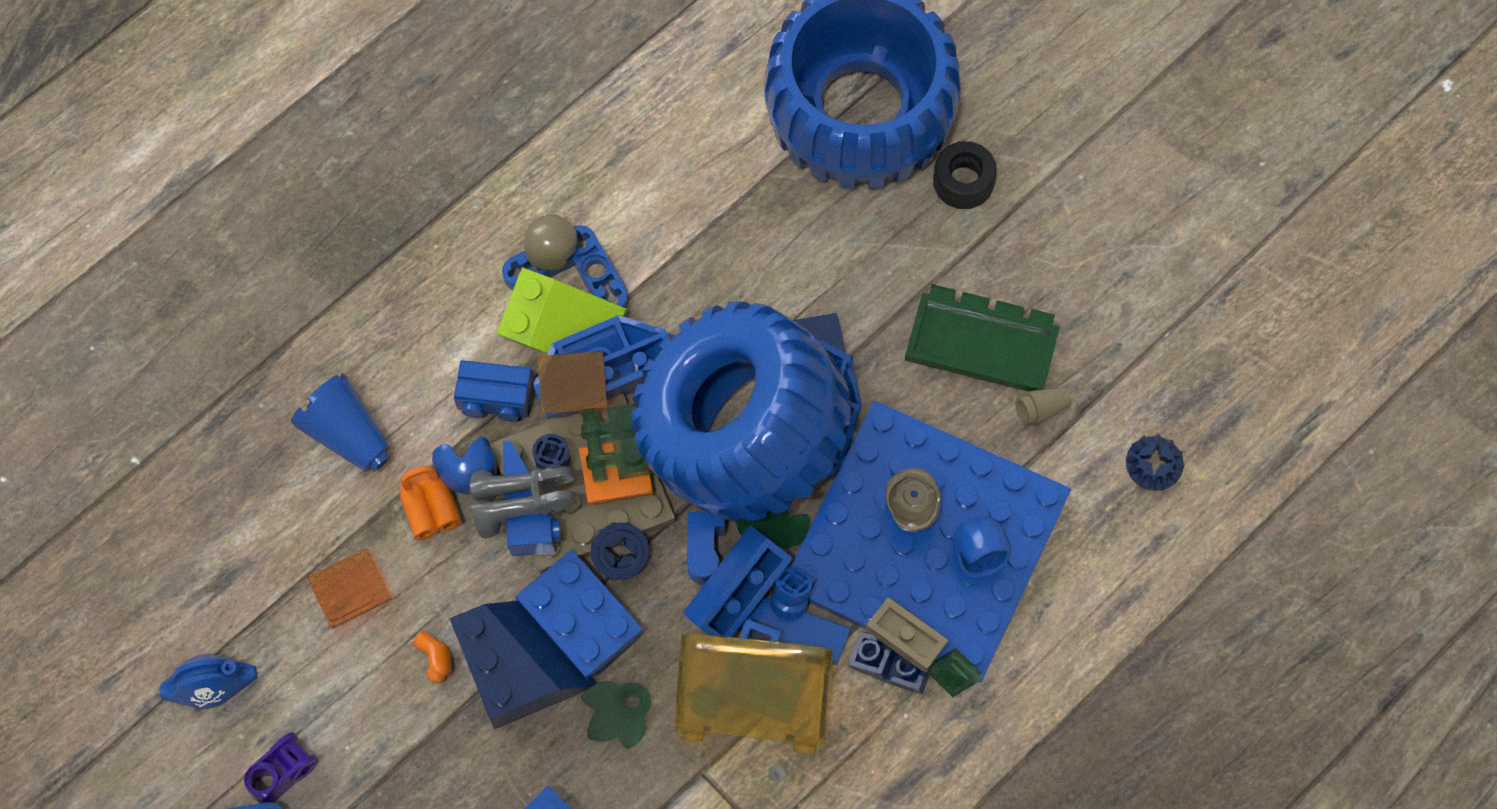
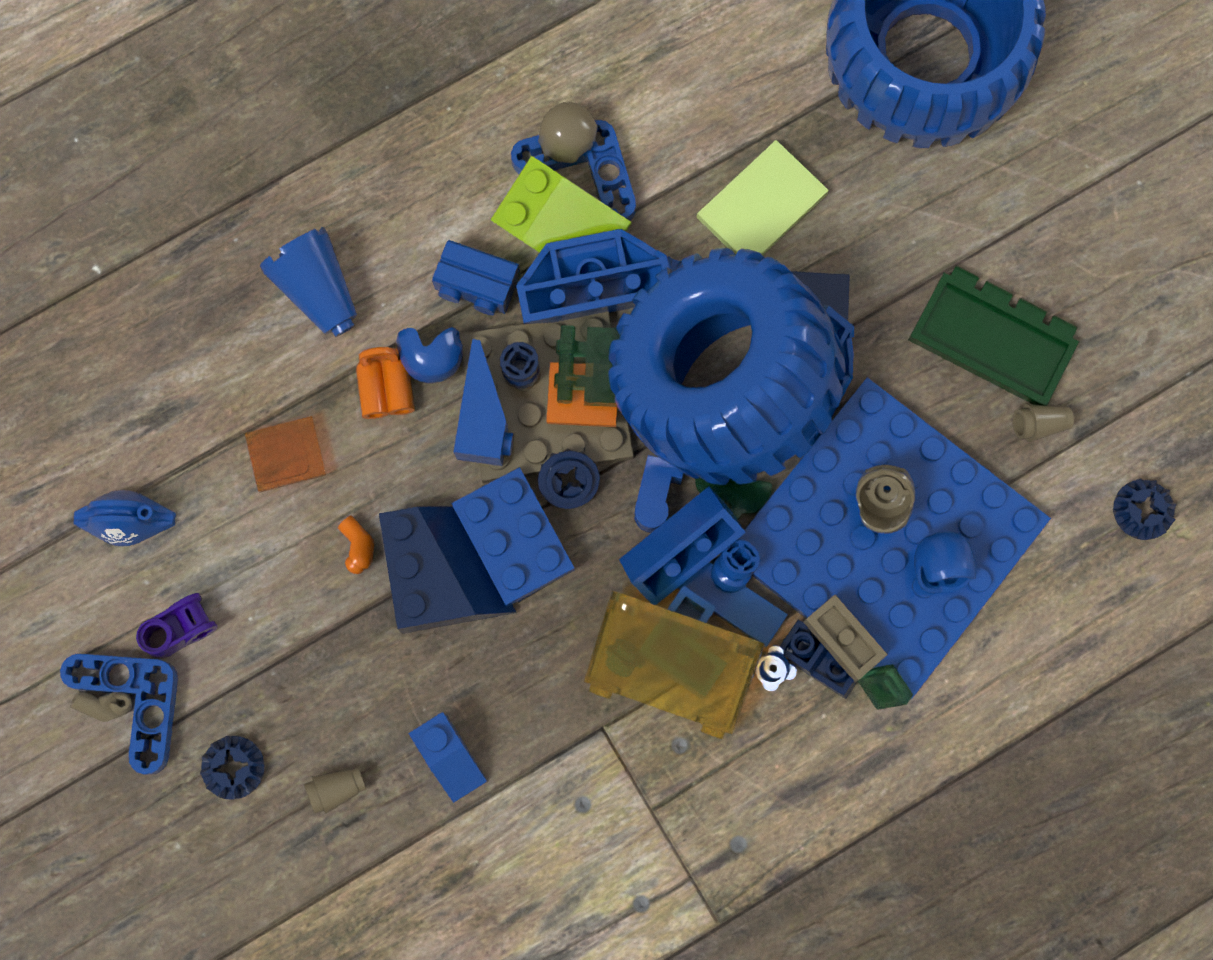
camera: 10 degrees right, 10 degrees up
(486, 487) = (444, 384): dark grey piece -> none
(572, 382) = (557, 292): clear orange piece -> none
(613, 716) = (524, 648): clear green plate -> none
(743, 263) = (763, 201): none -> yellowish green tile
(859, 680) = (784, 669): none -> plate
(964, 155) = (1028, 135): black tyre -> none

